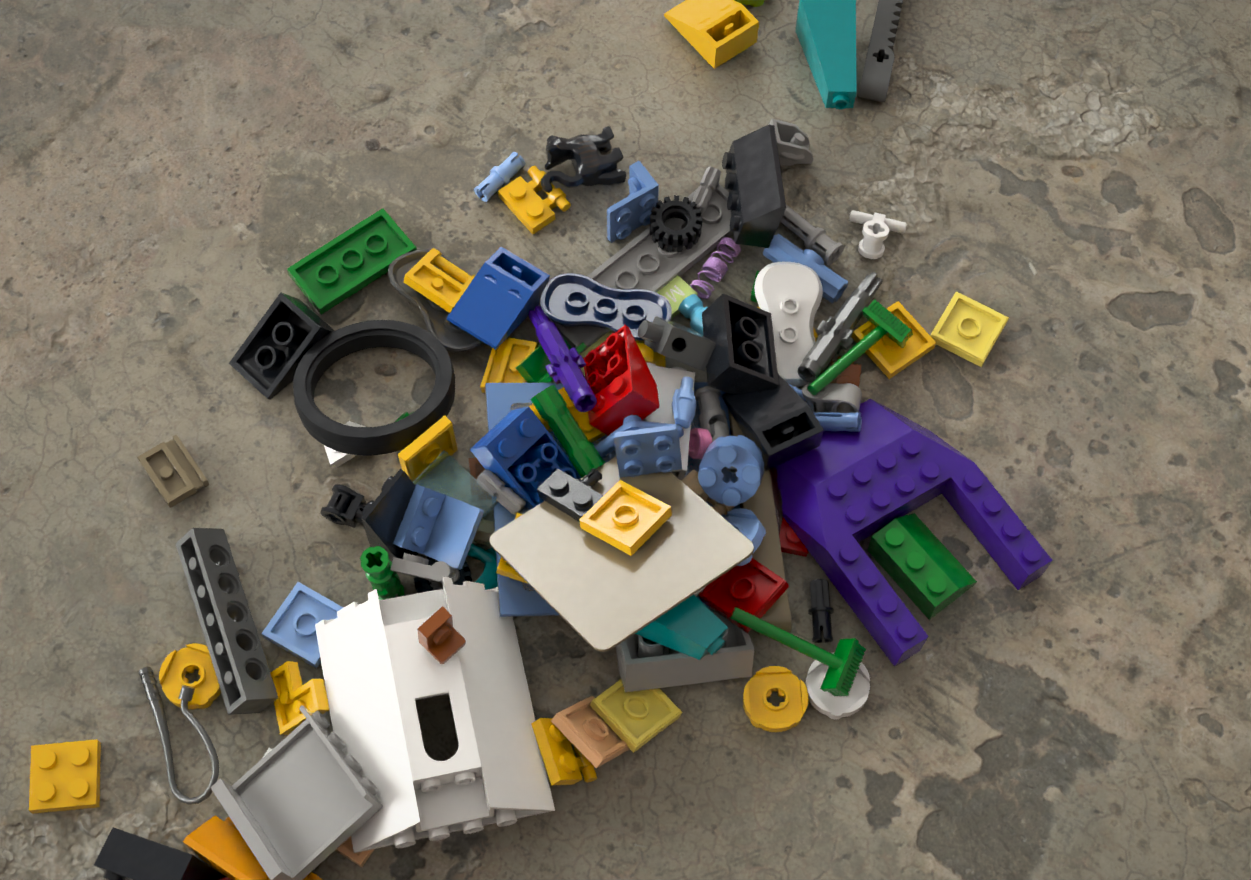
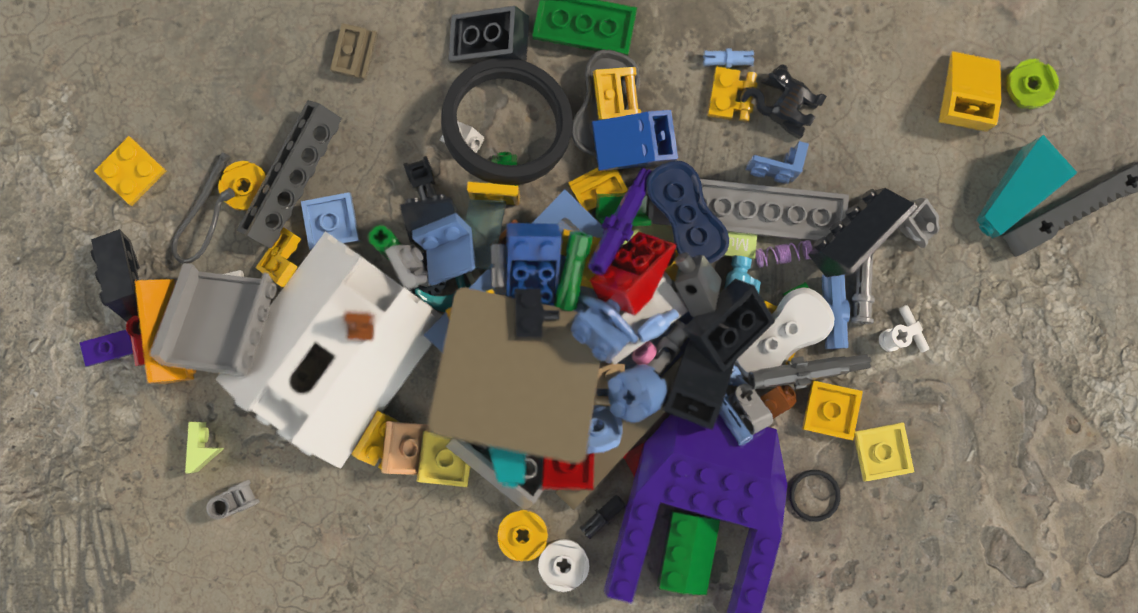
camera: 45 degrees right, 20 degrees up
(625, 517) = (537, 363): yellow plate -> none
(675, 209) = (803, 197): black tyre -> none
(708, 185) = (829, 201): light grey piece -> none
(842, 664) = (572, 561): green piece -> none
(885, 324) = (834, 400): green piece -> none
(974, 396) = (792, 495): none -> black piece

